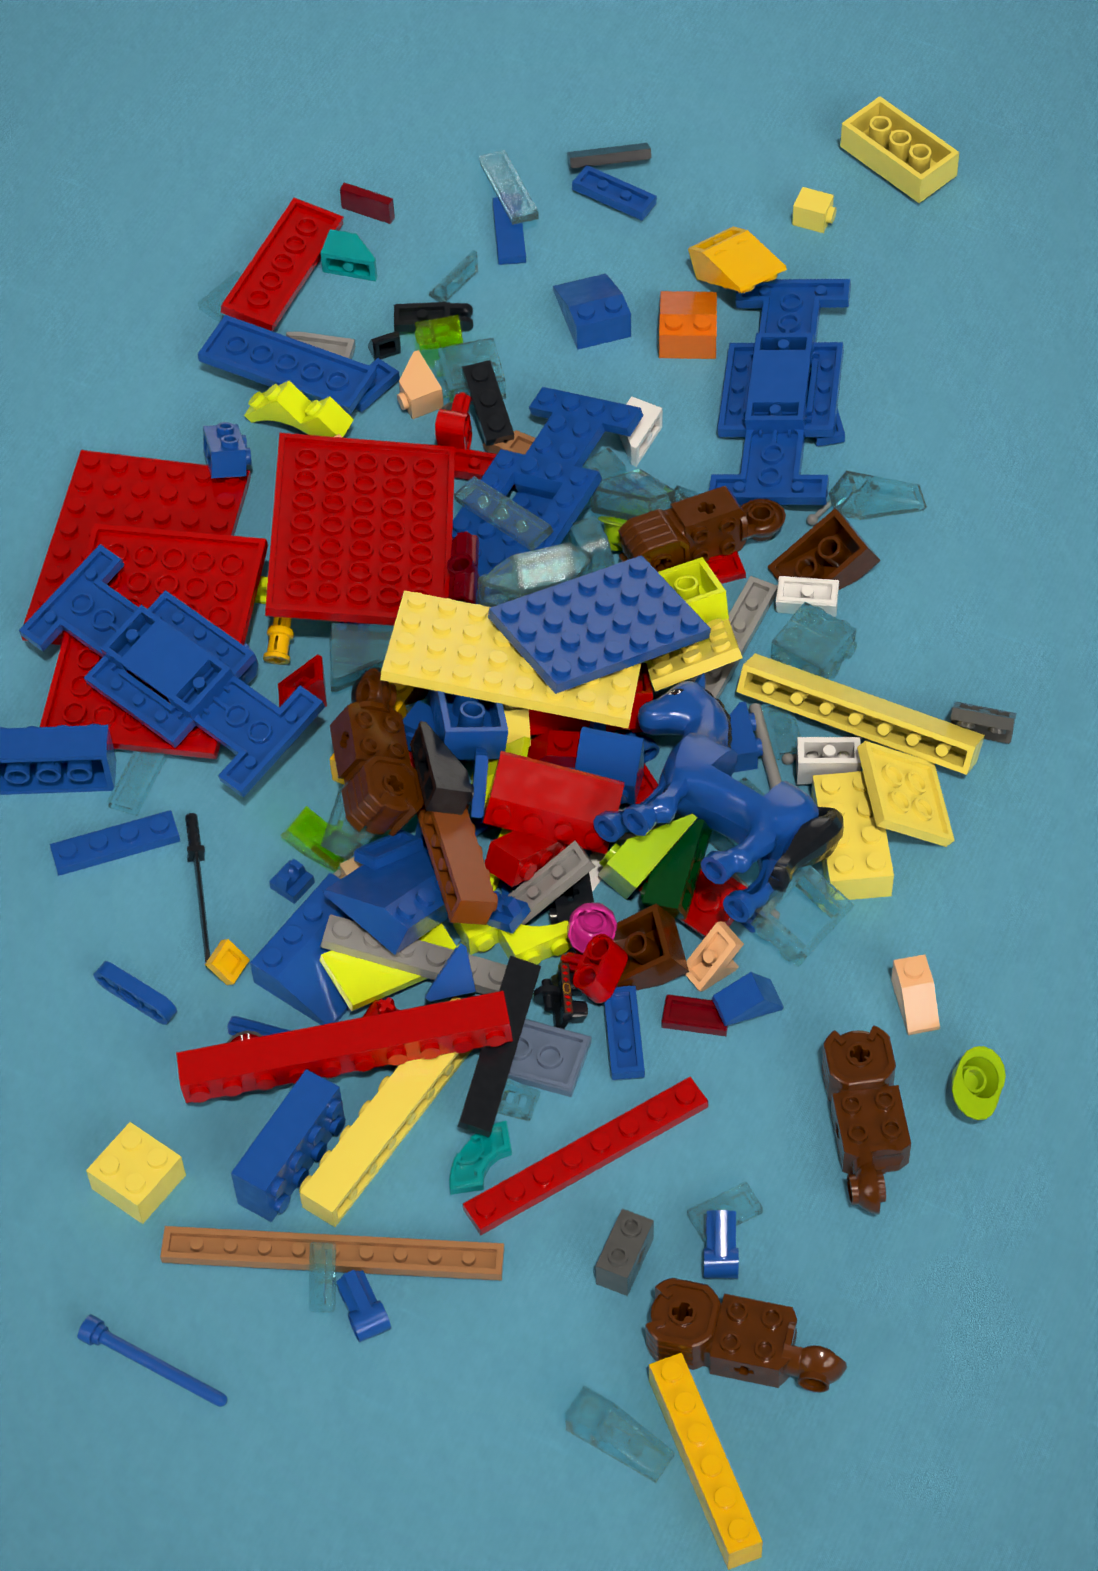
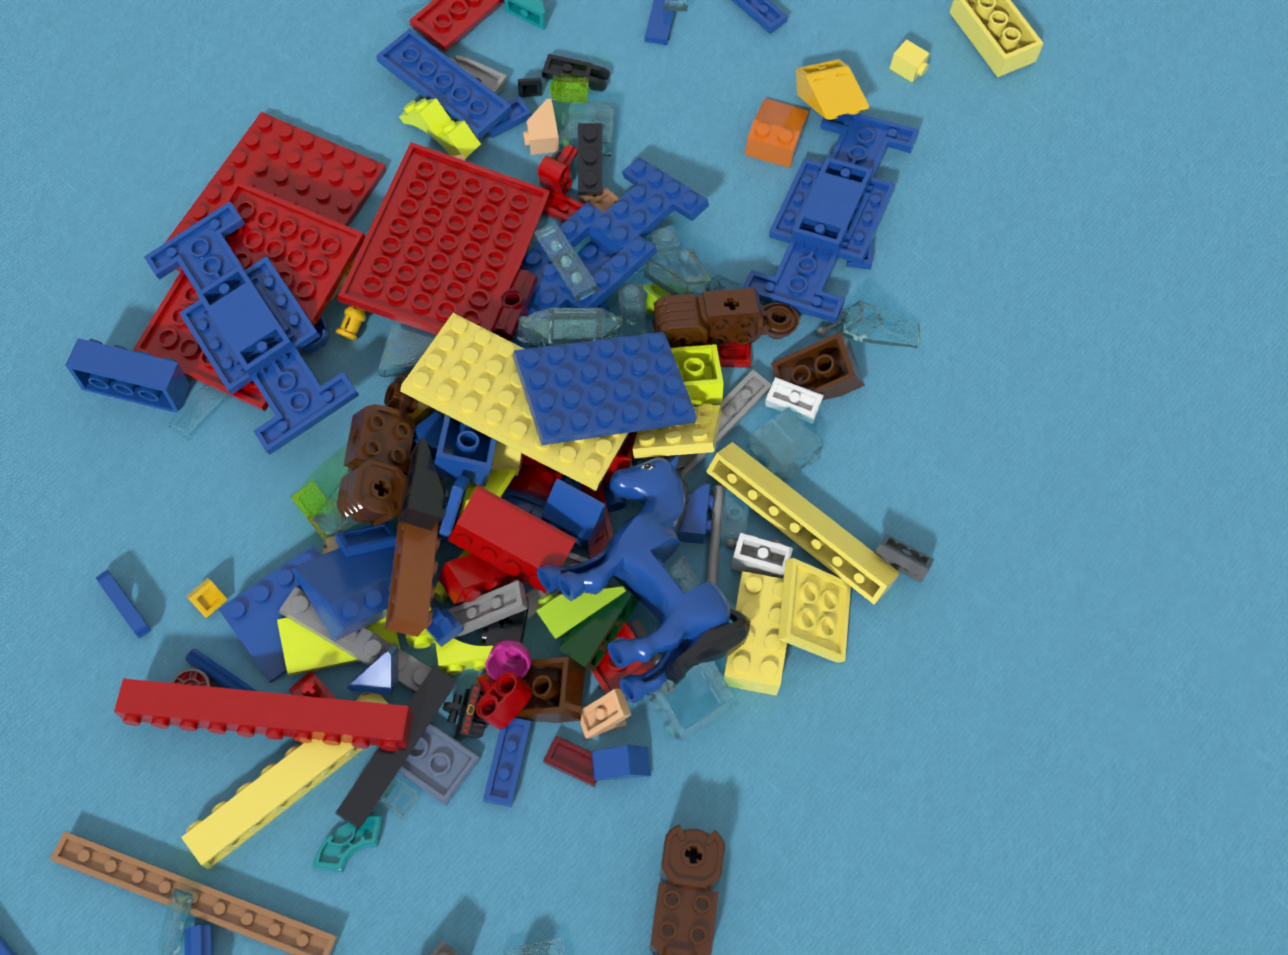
camera: 10 degrees right, 10 degrees up
(114, 842) = (160, 461): blue plate -> none
(136, 1172) = (59, 773): light yellow brick -> none
(195, 855) = (219, 489): black sword -> none
(225, 450) = (369, 144): blue brick -> none
(289, 1146) = (187, 791): blue brick -> none
(292, 881) = (288, 538): blue tile -> none
(309, 676) = (361, 366): red slope -> none
(456, 278) = (605, 44): clear light blue slope -> none
(585, 1155) = (436, 868): red plate -> none
(594, 310) = (705, 101): blue slope -> none
(644, 433) = (710, 216): white slope -> none
(915, 994) = (765, 801): light nougat slope -> none
(978, 1082) = (789, 907): lime piece -> none

